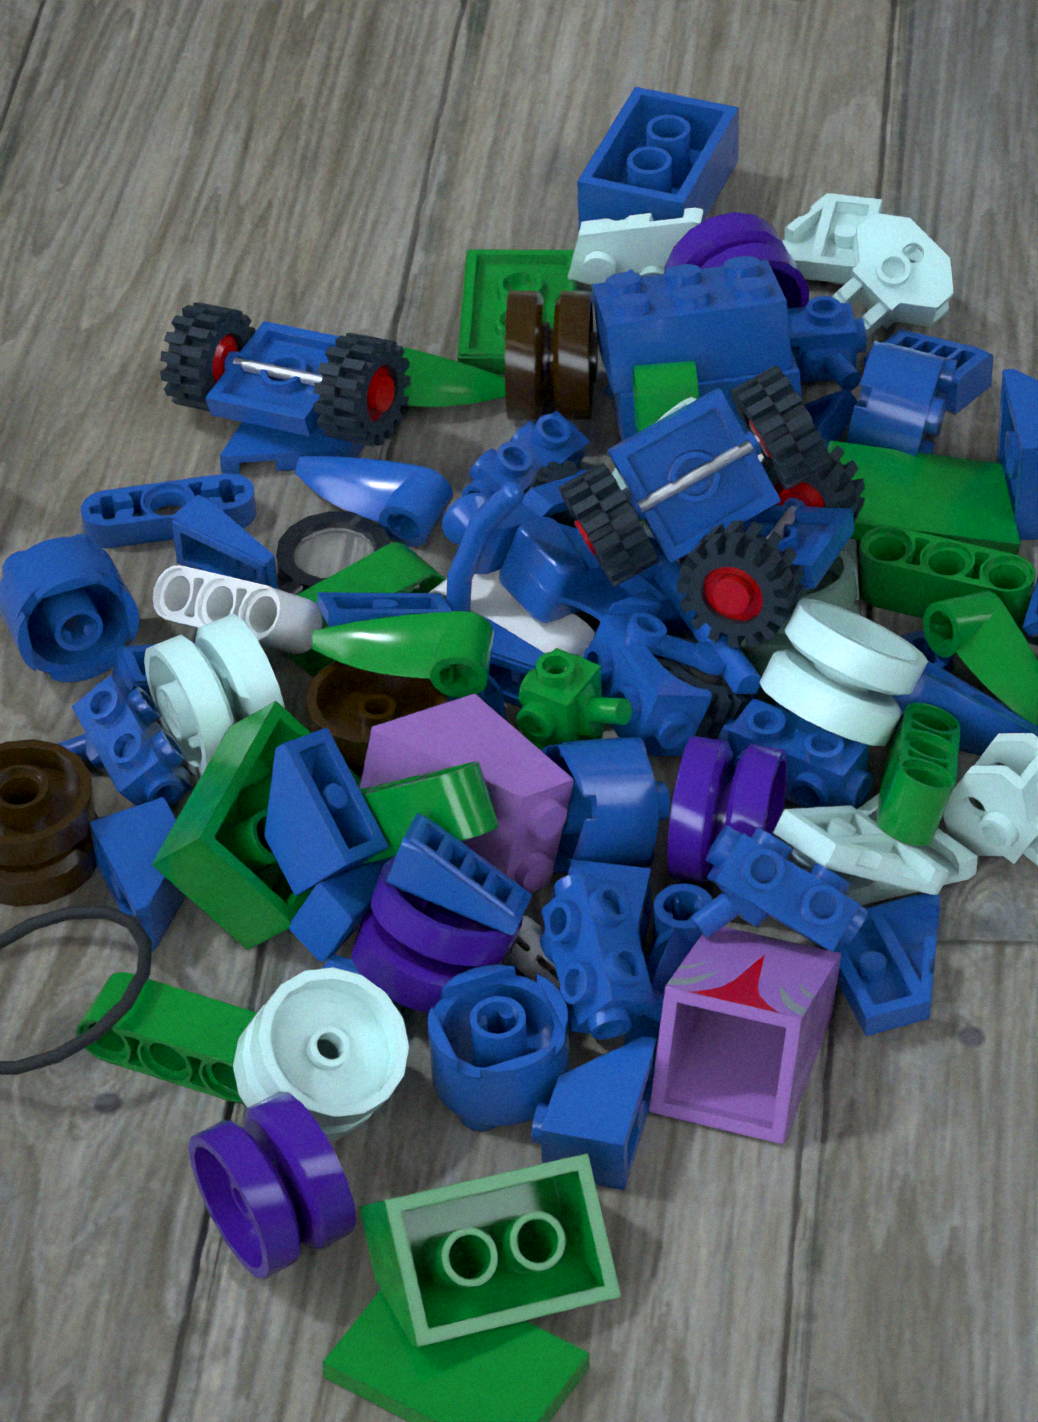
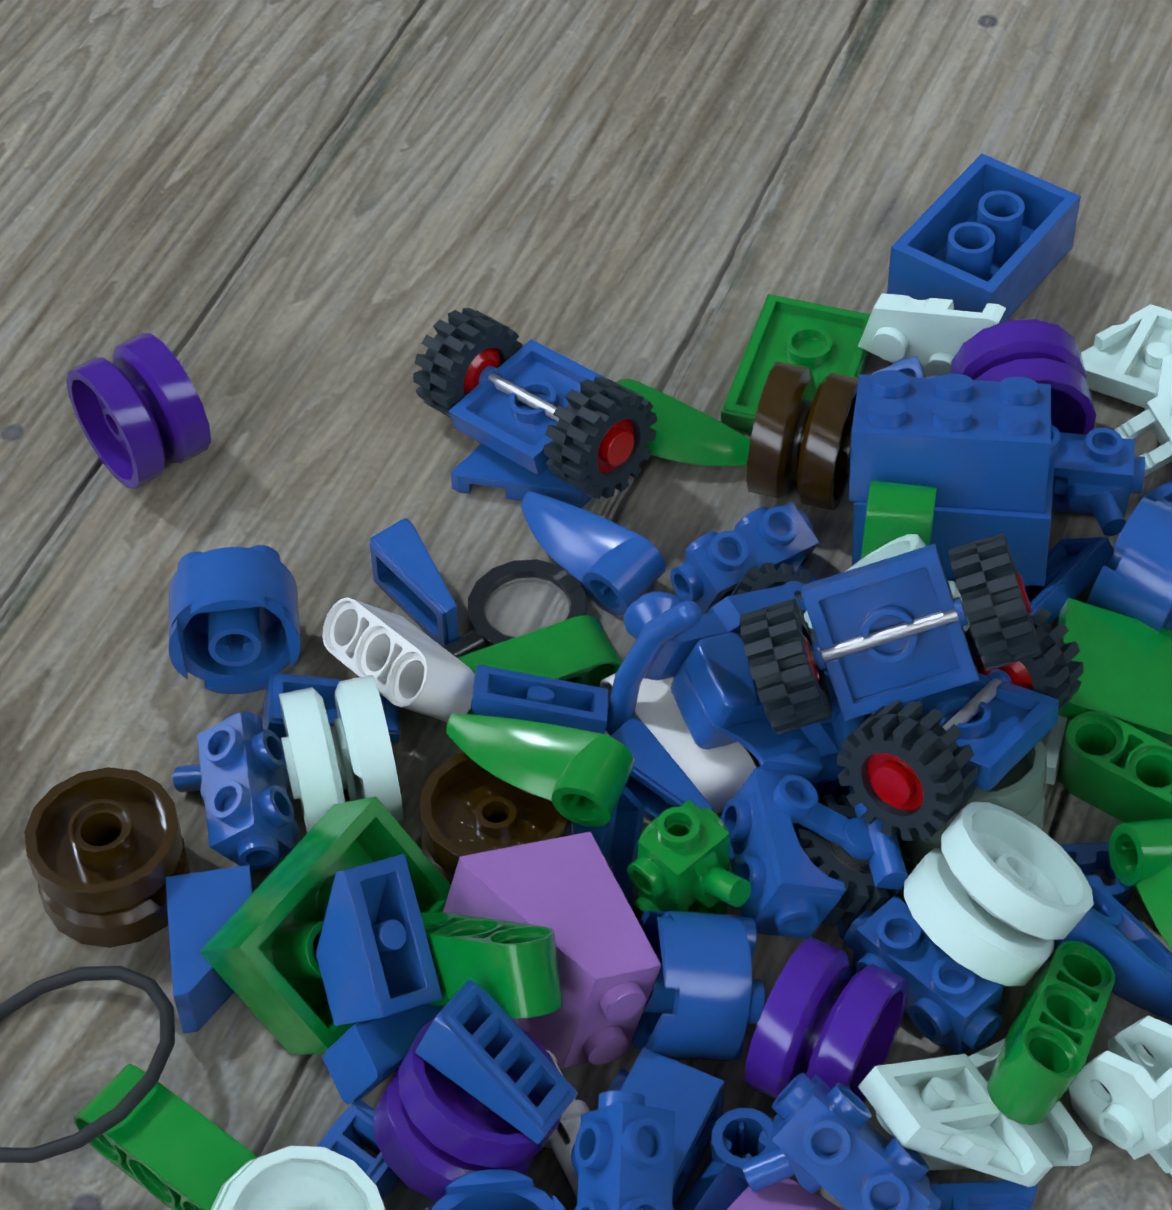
camera: 15 degrees right, 5 degrees up
(150, 527) = (341, 504): blue beam -> none

